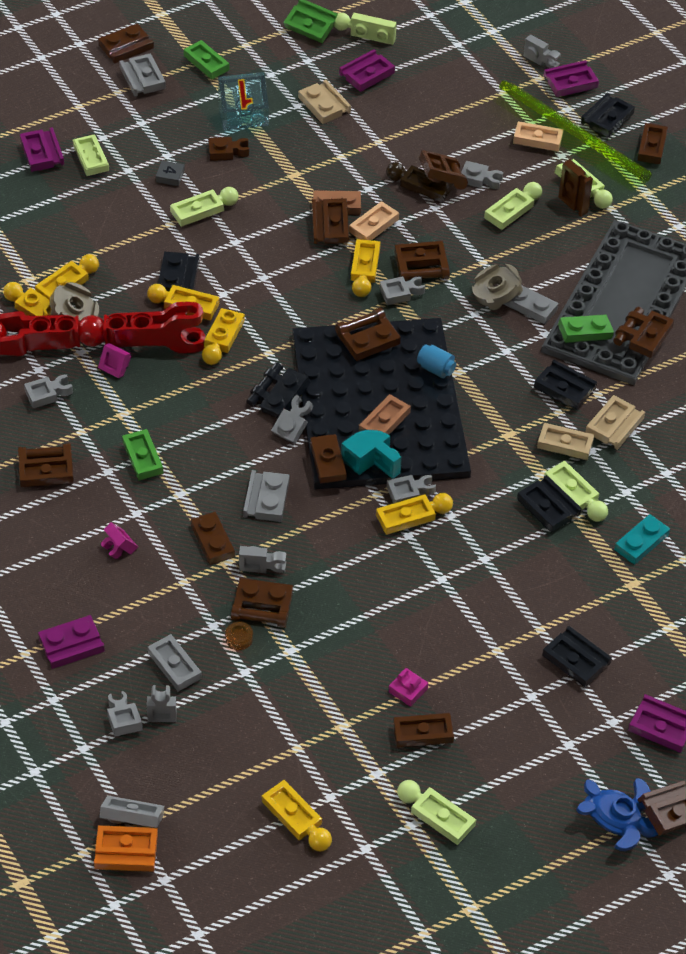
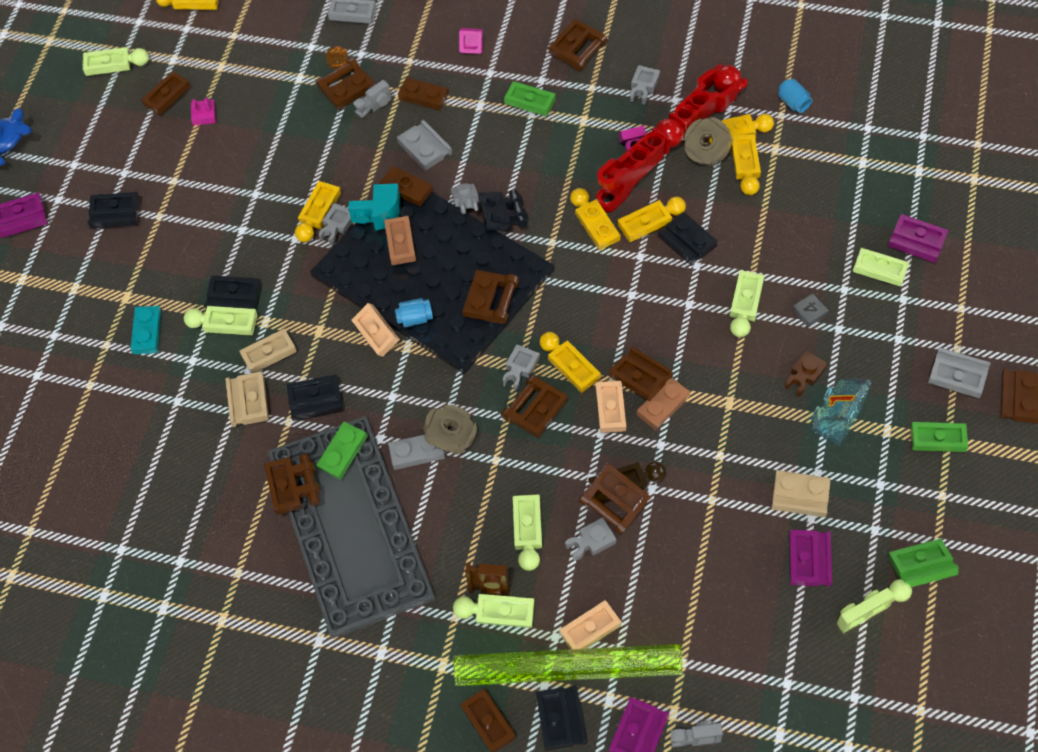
camera: 140 degrees right, 10 degrees up
(471, 389) = (375, 329): none -> light nougat plate

